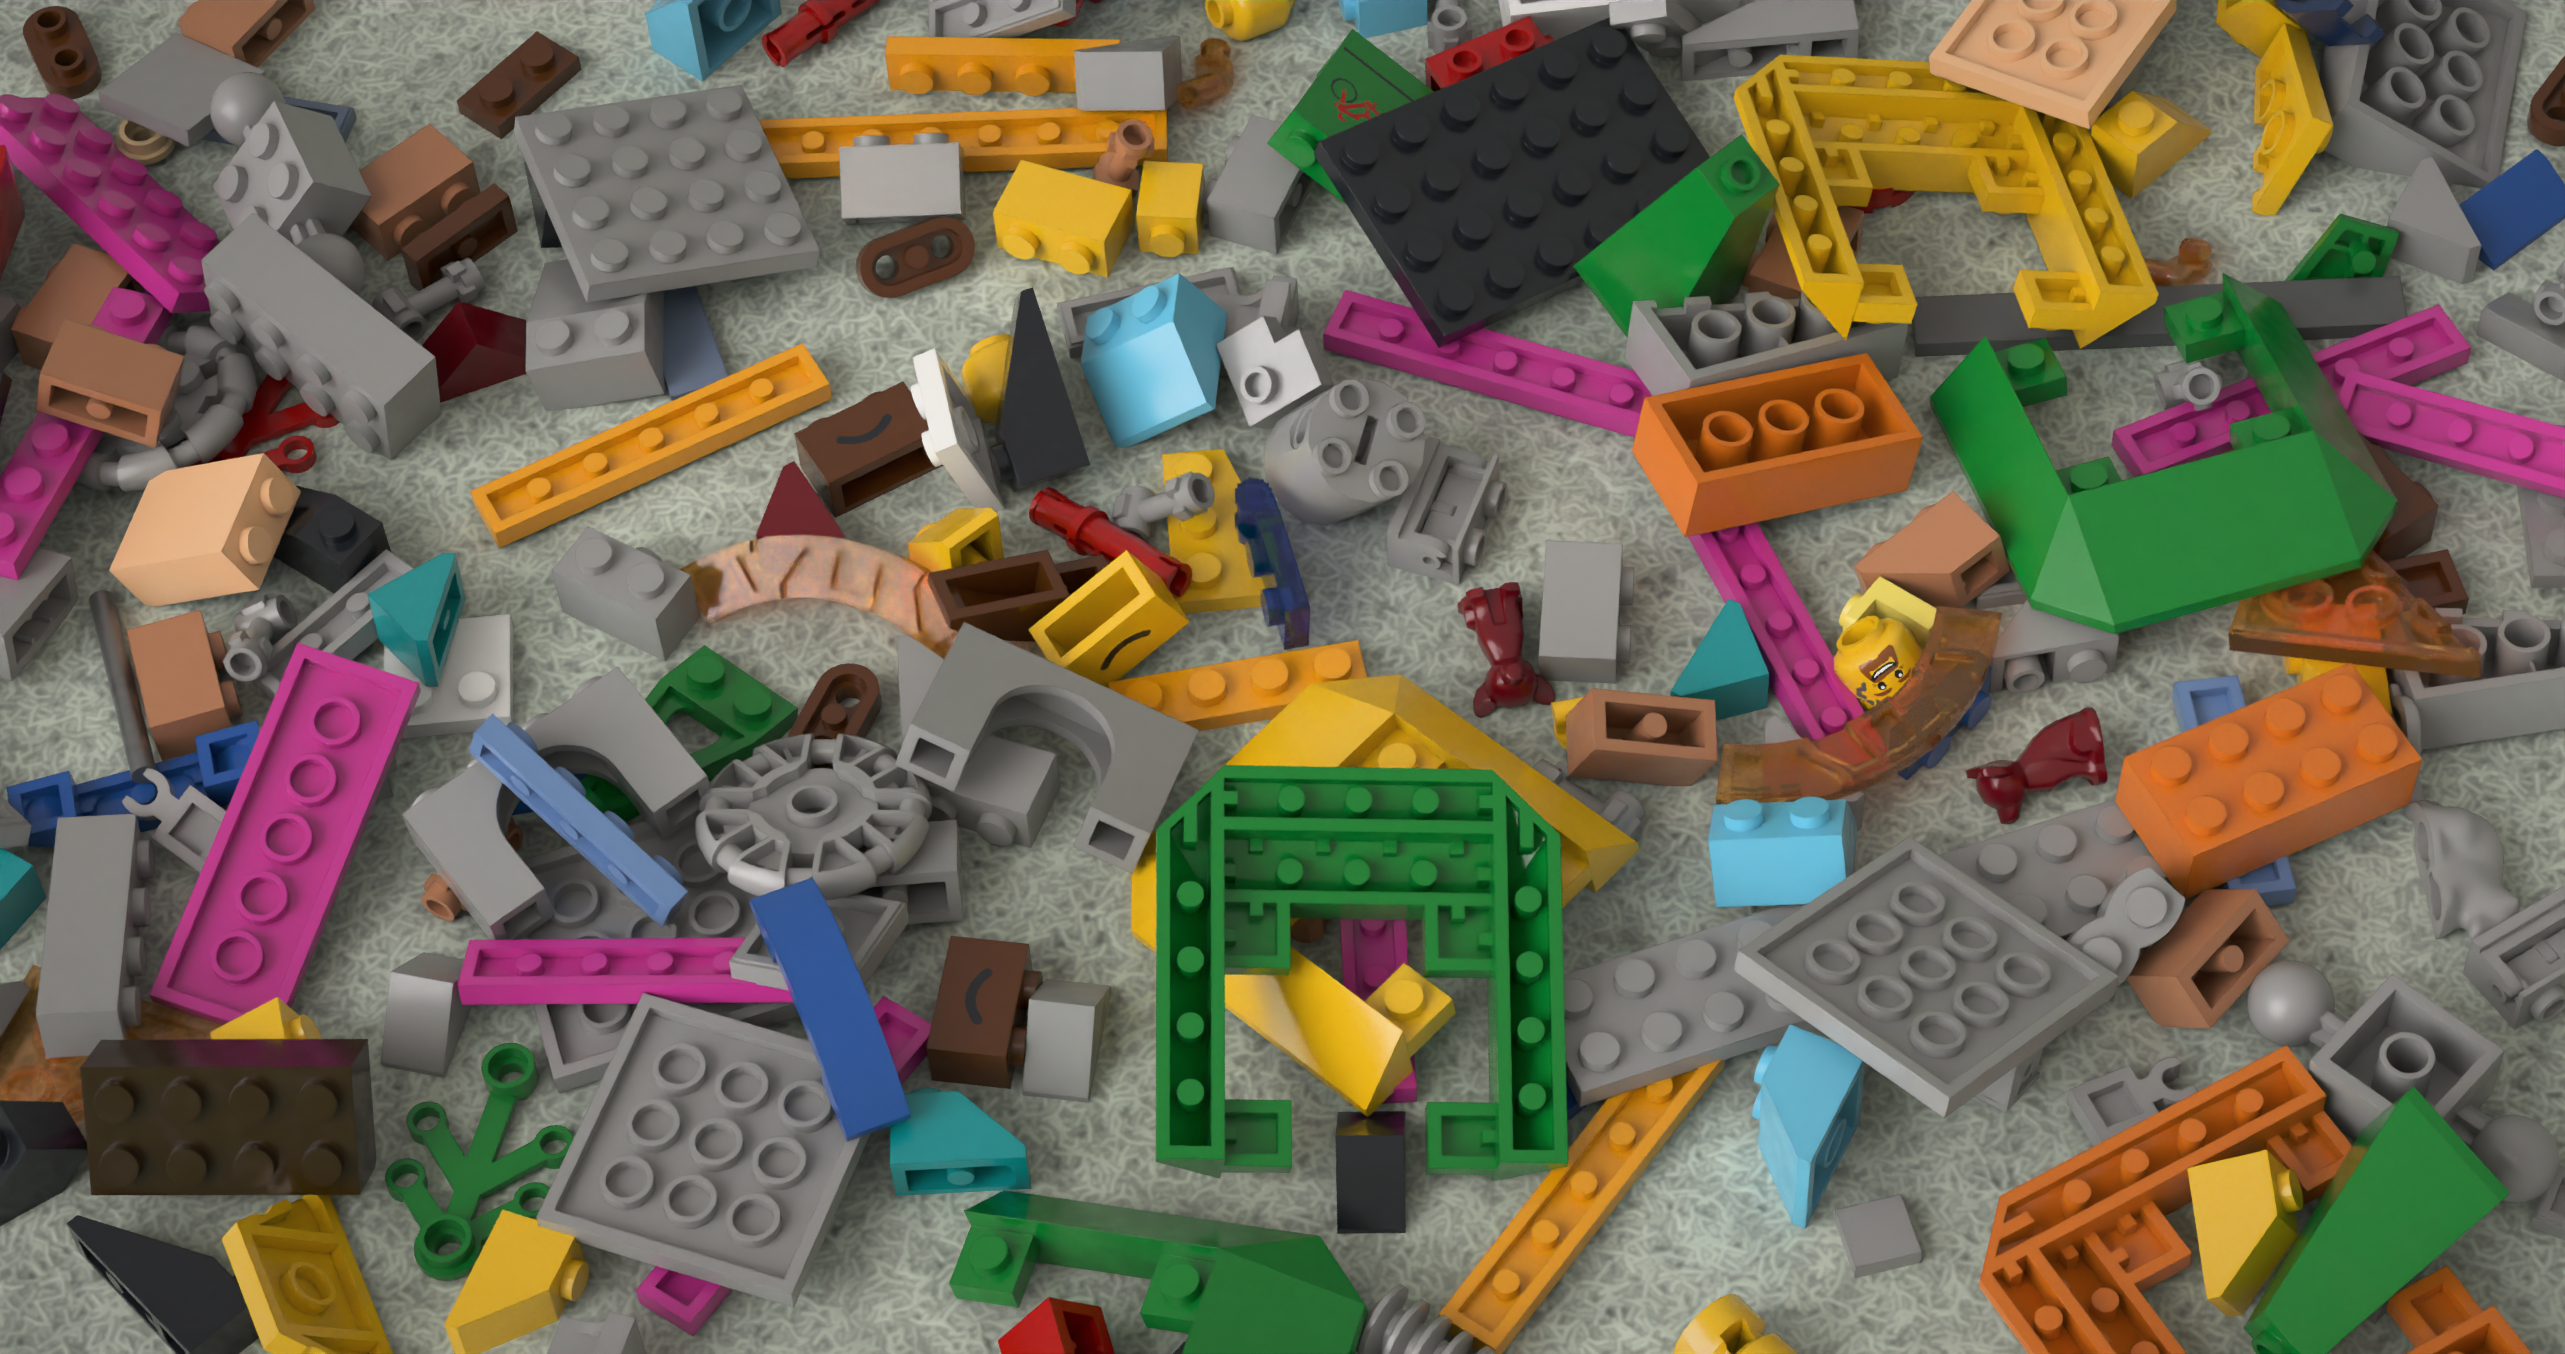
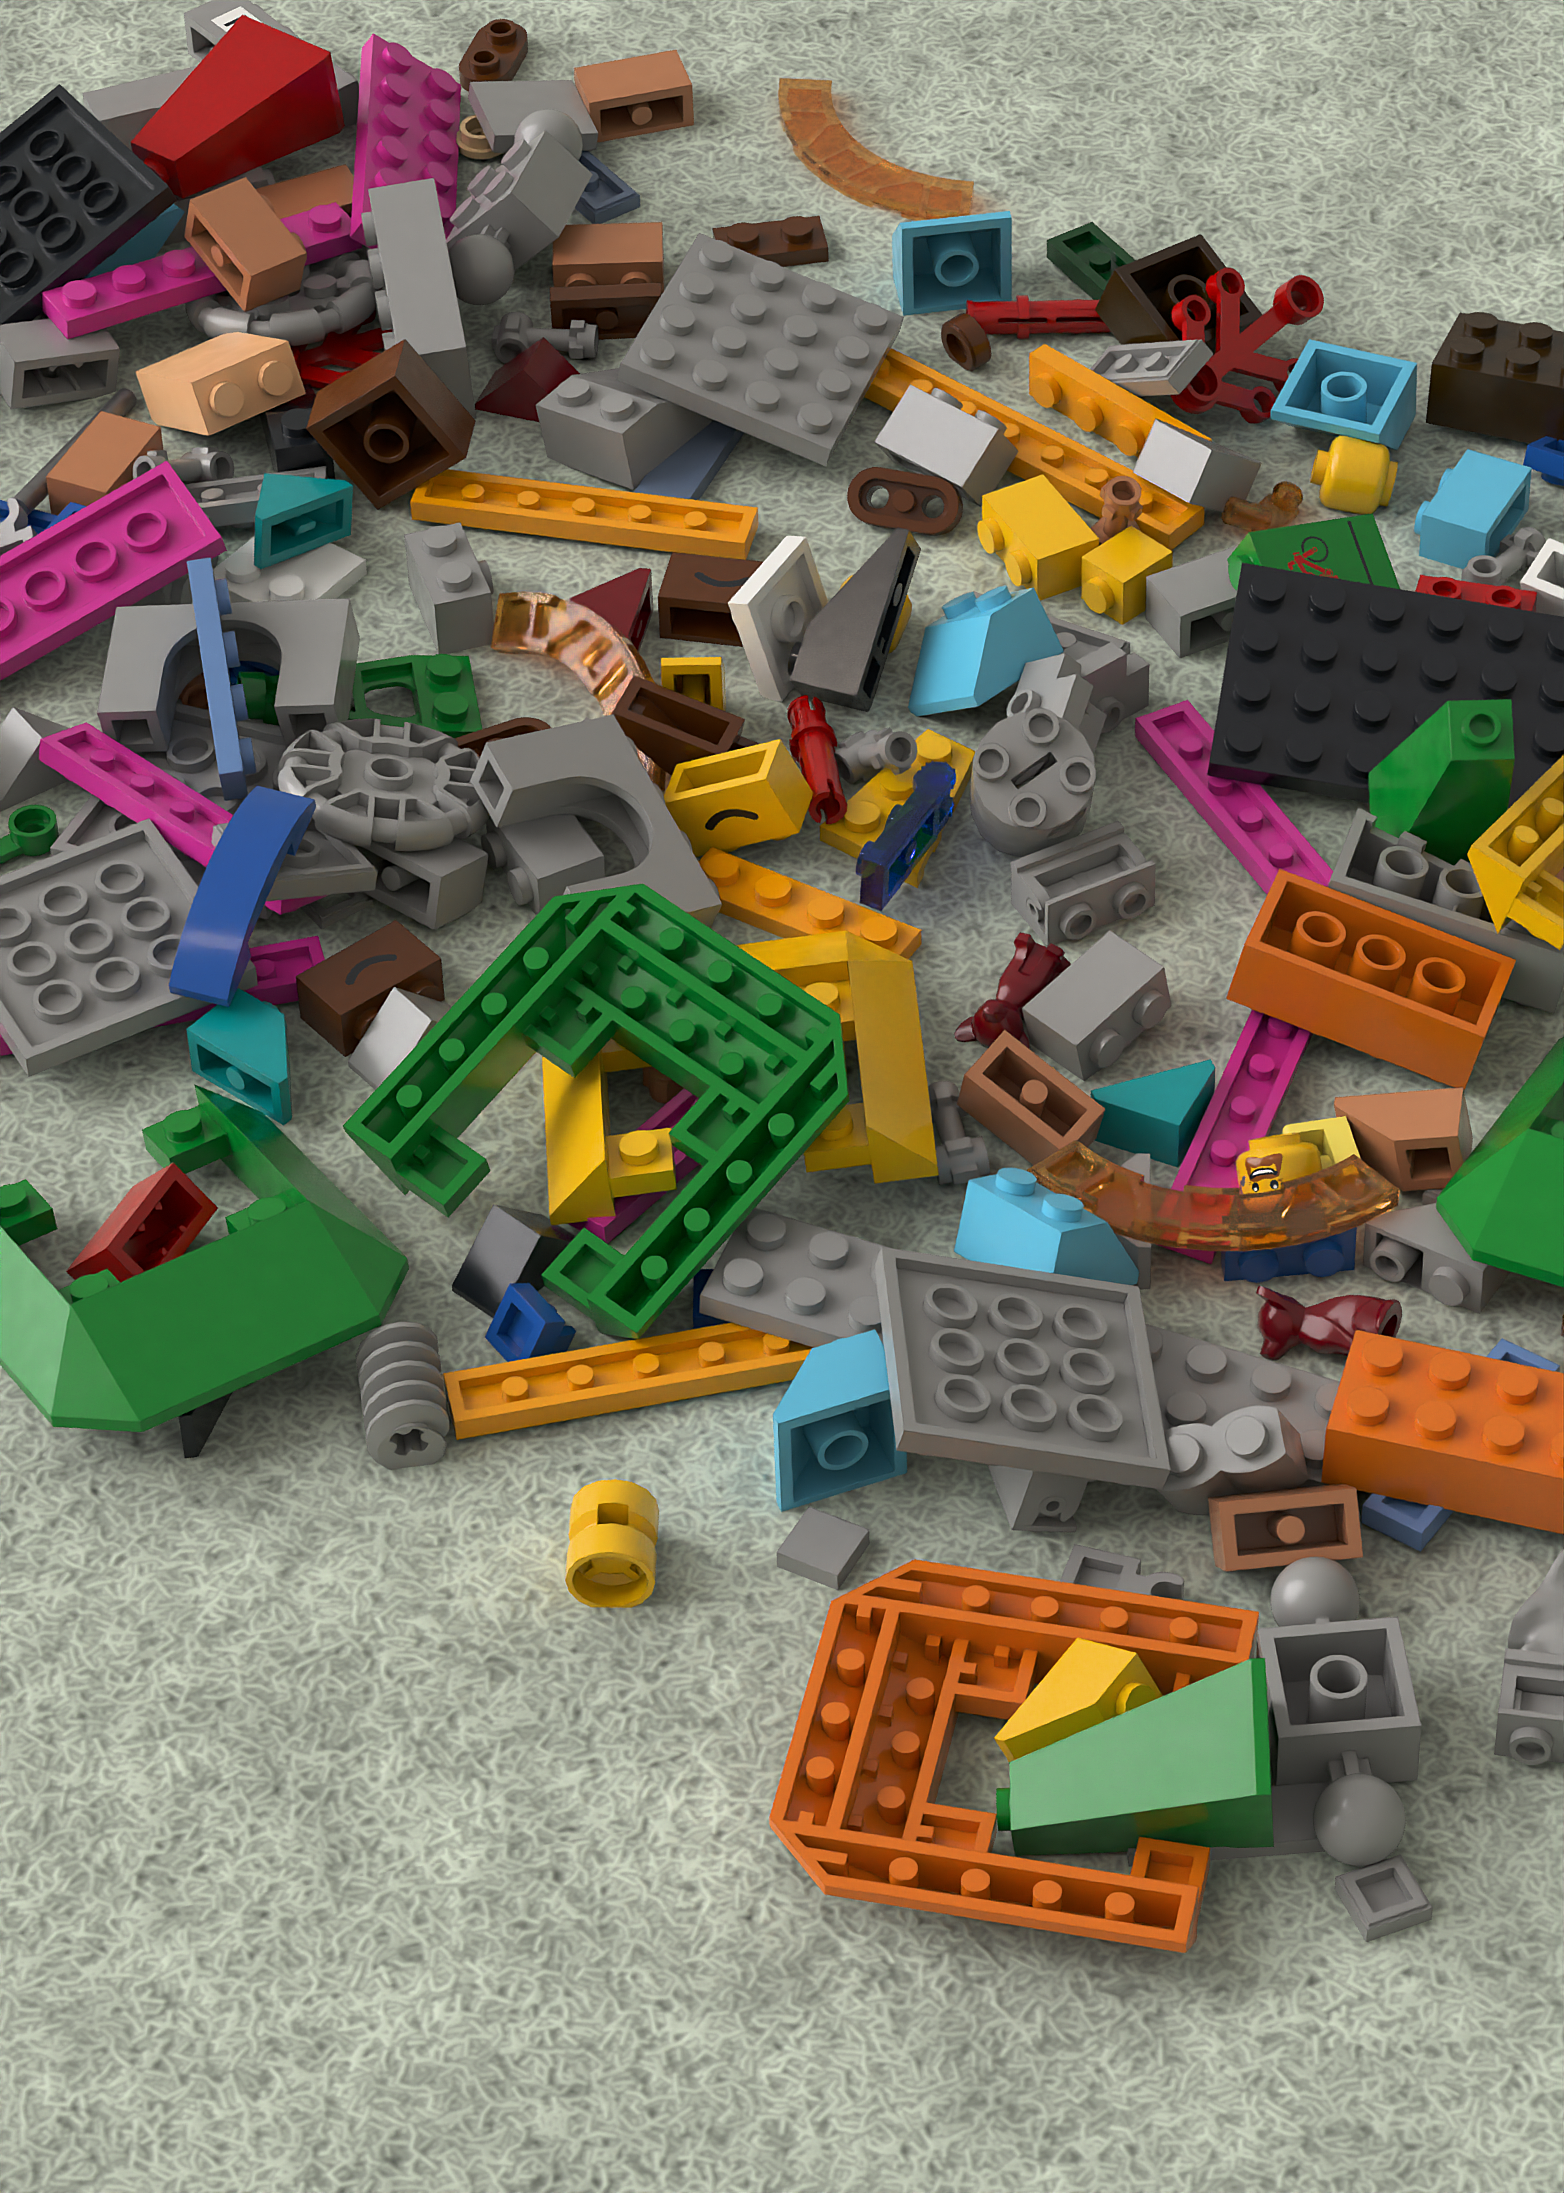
camera: 40 degrees right, 10 degrees down
(428, 472) = (391, 424): none -> reddish brown brick
(799, 74) = (966, 342): none -> reddish brown tile
(1454, 1224) = (527, 1325): none -> blue tile

